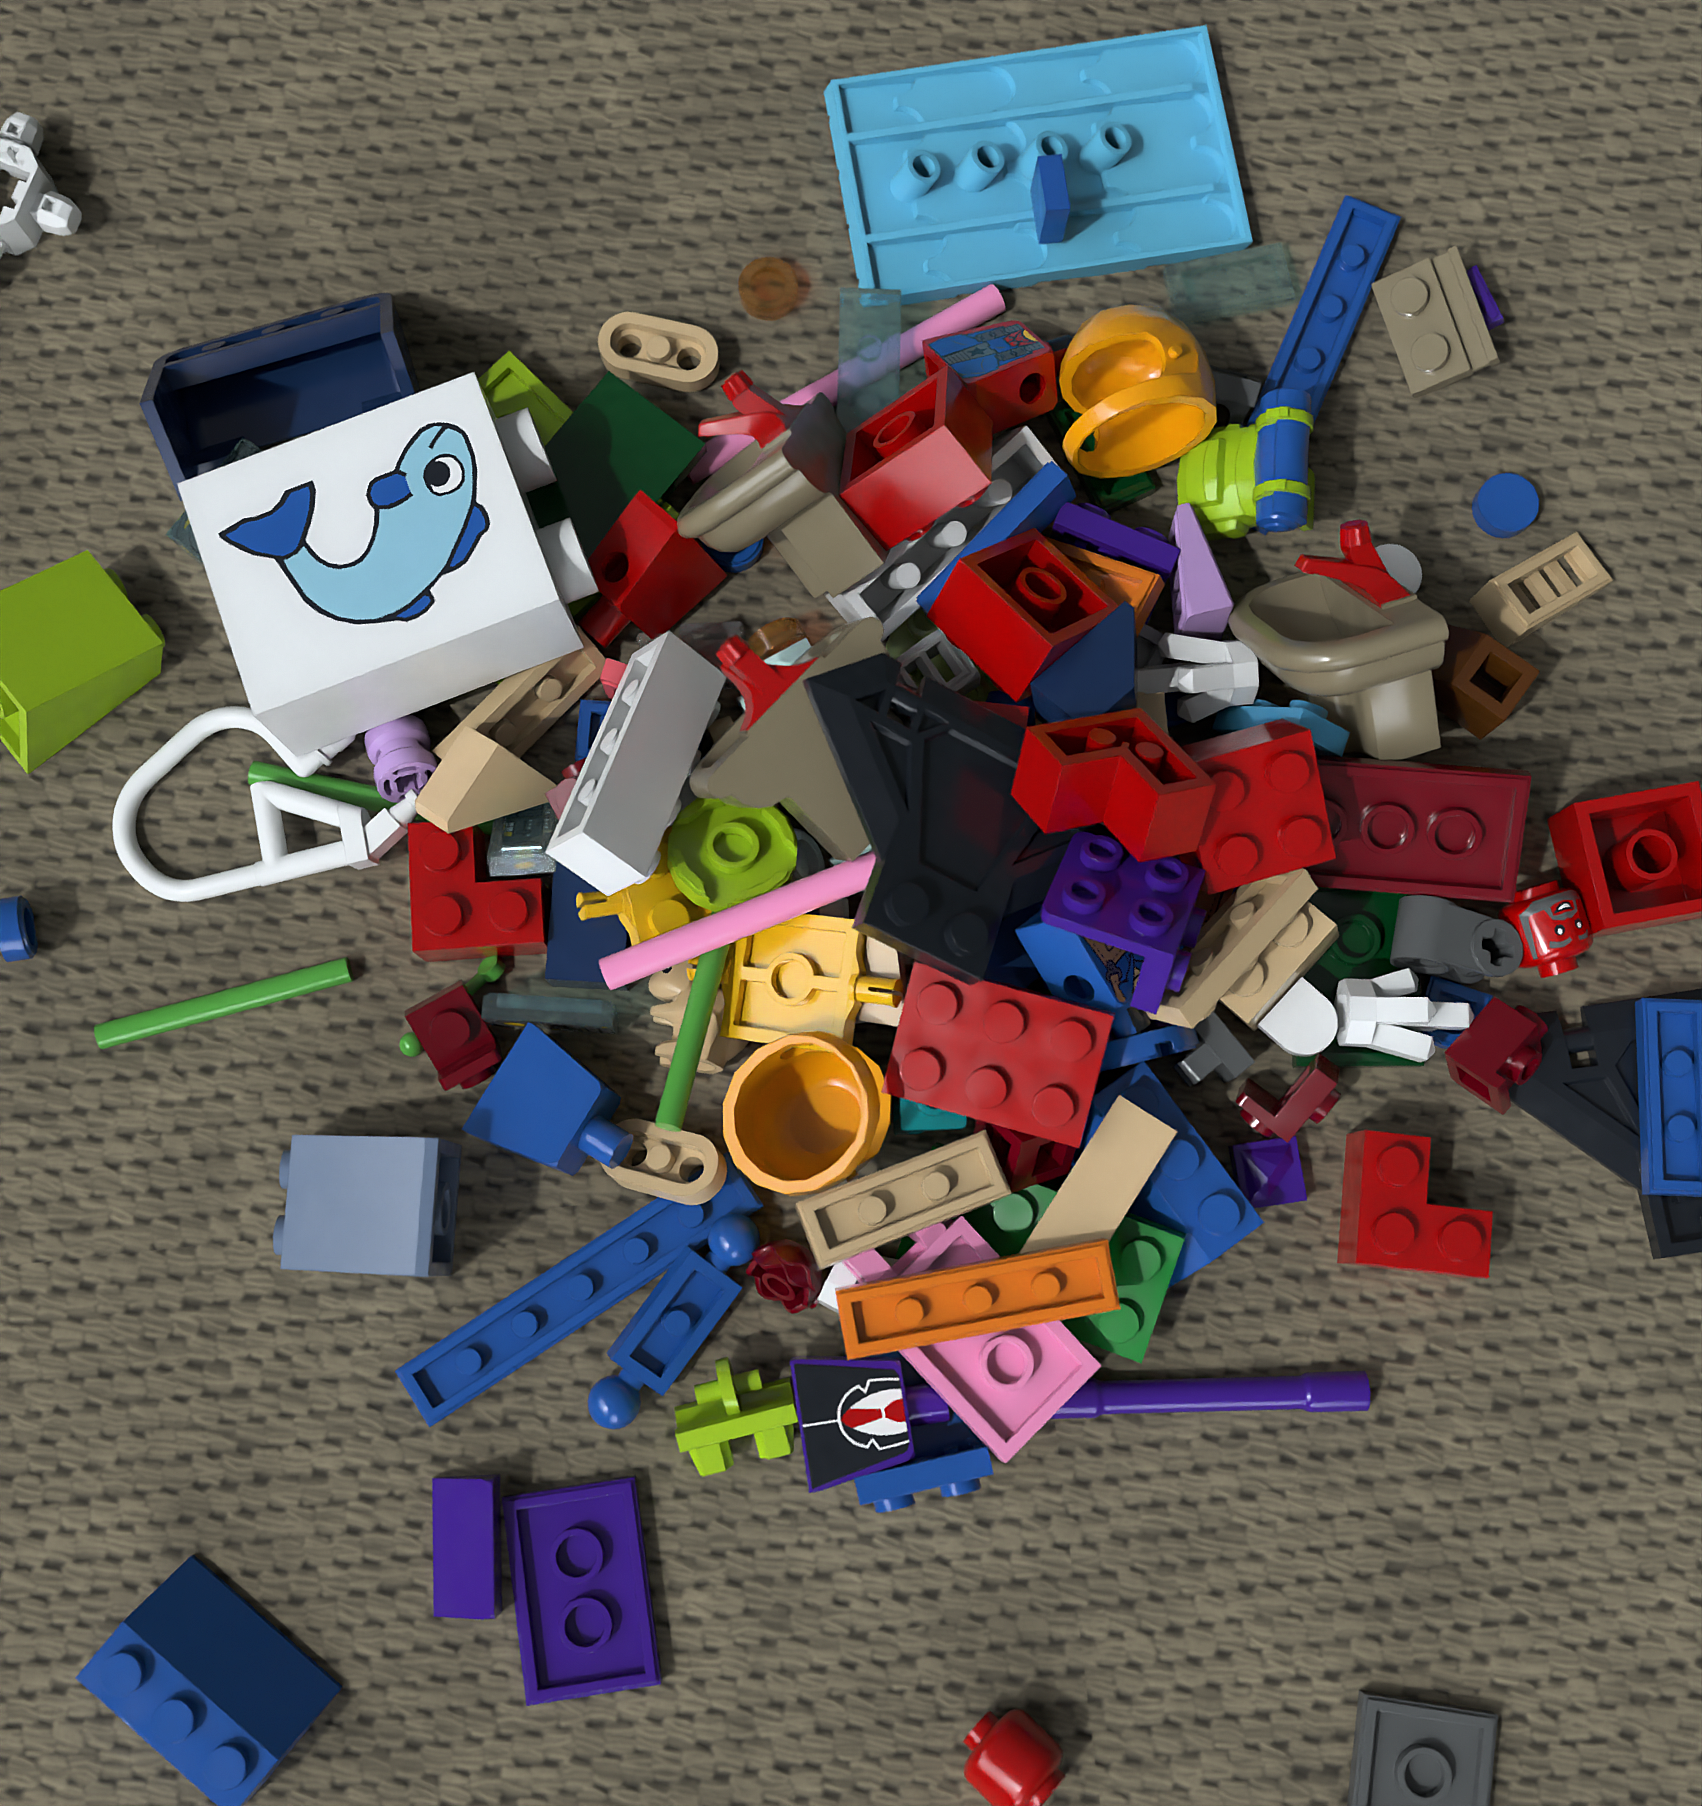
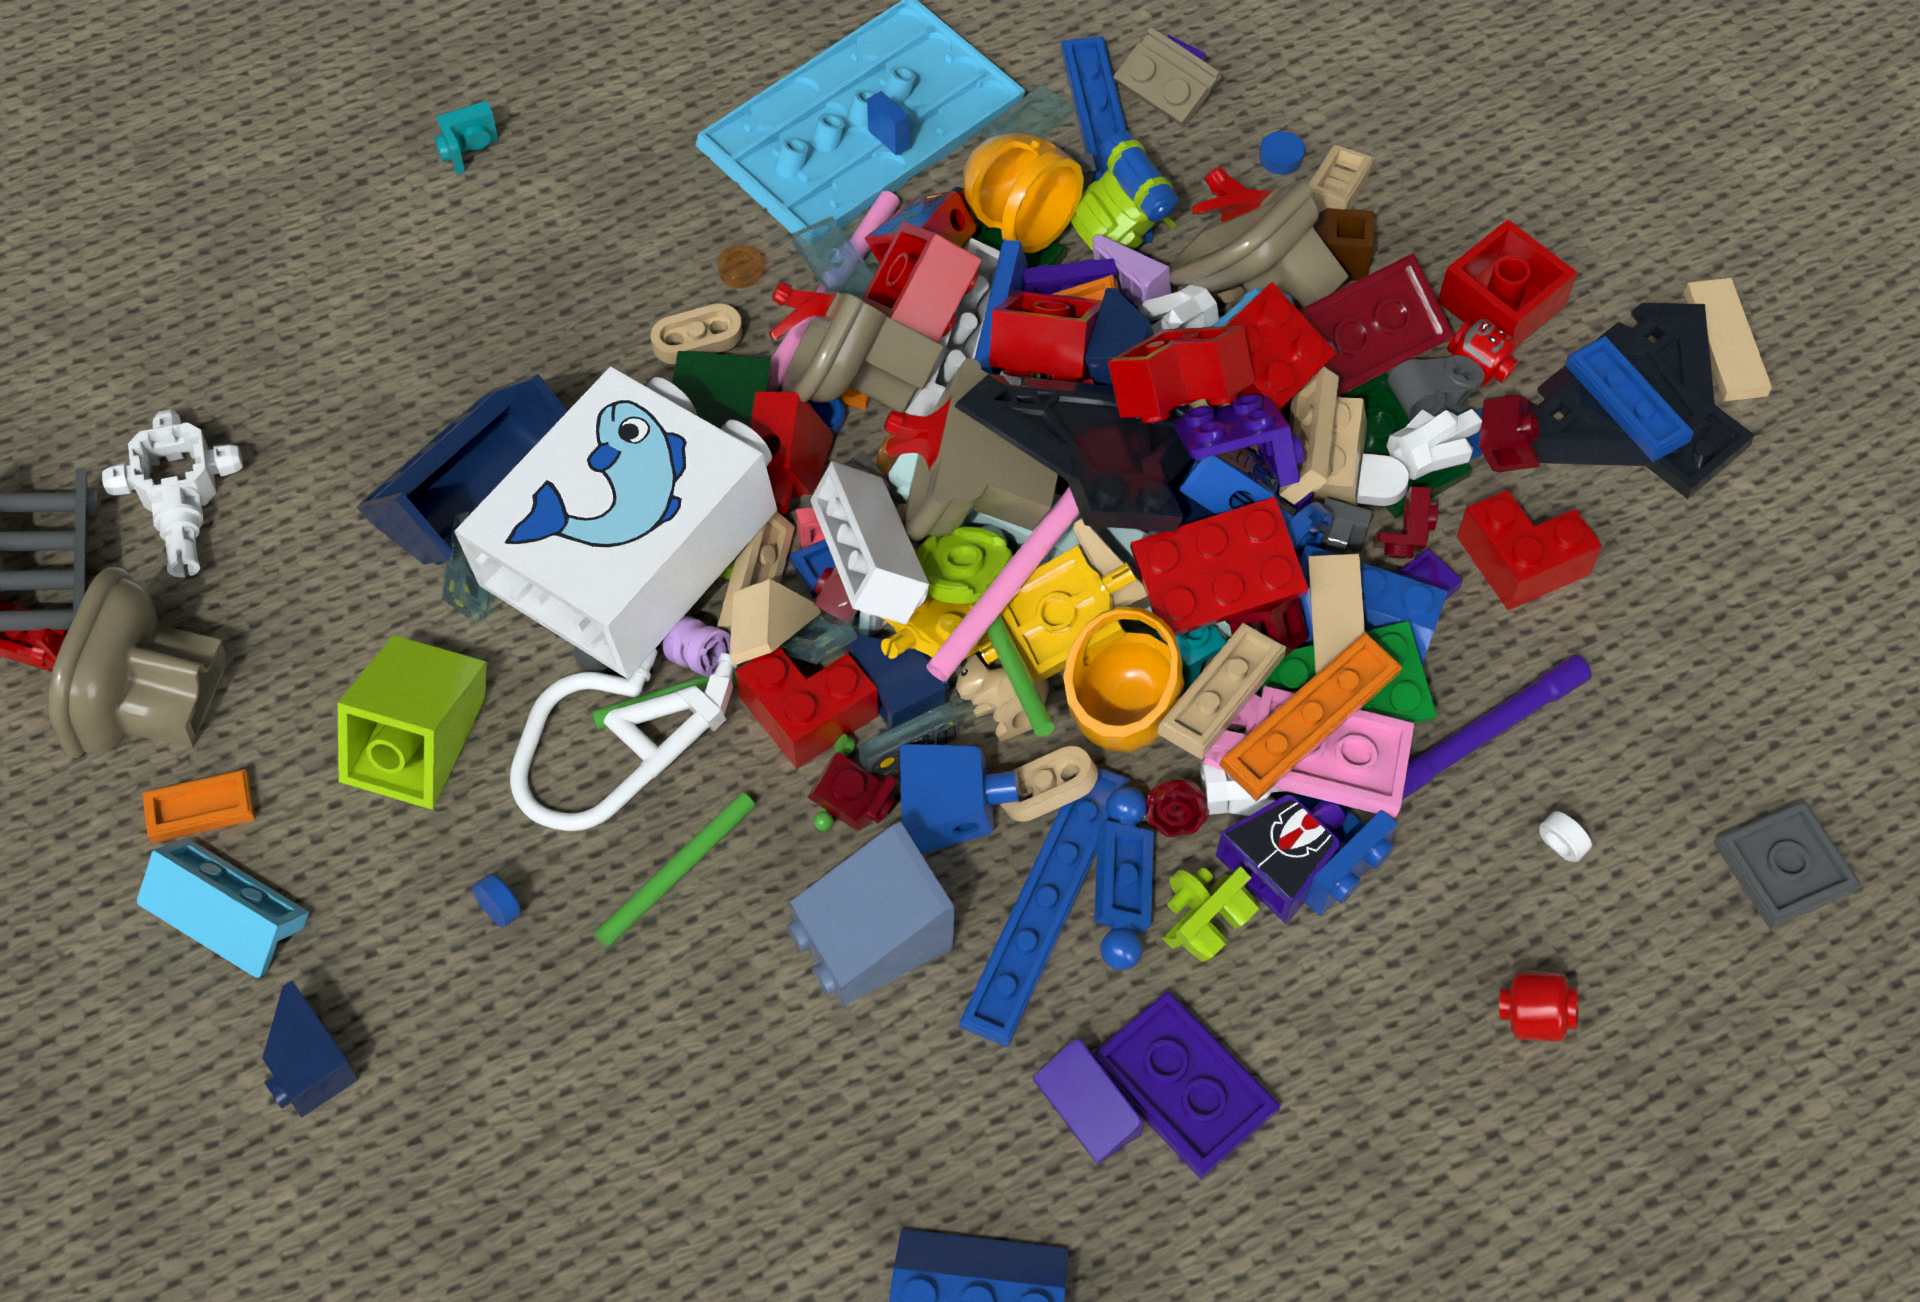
camera: 30 degrees left, 20 degrees down
(1188, 1585) = (1565, 836): none -> white tile

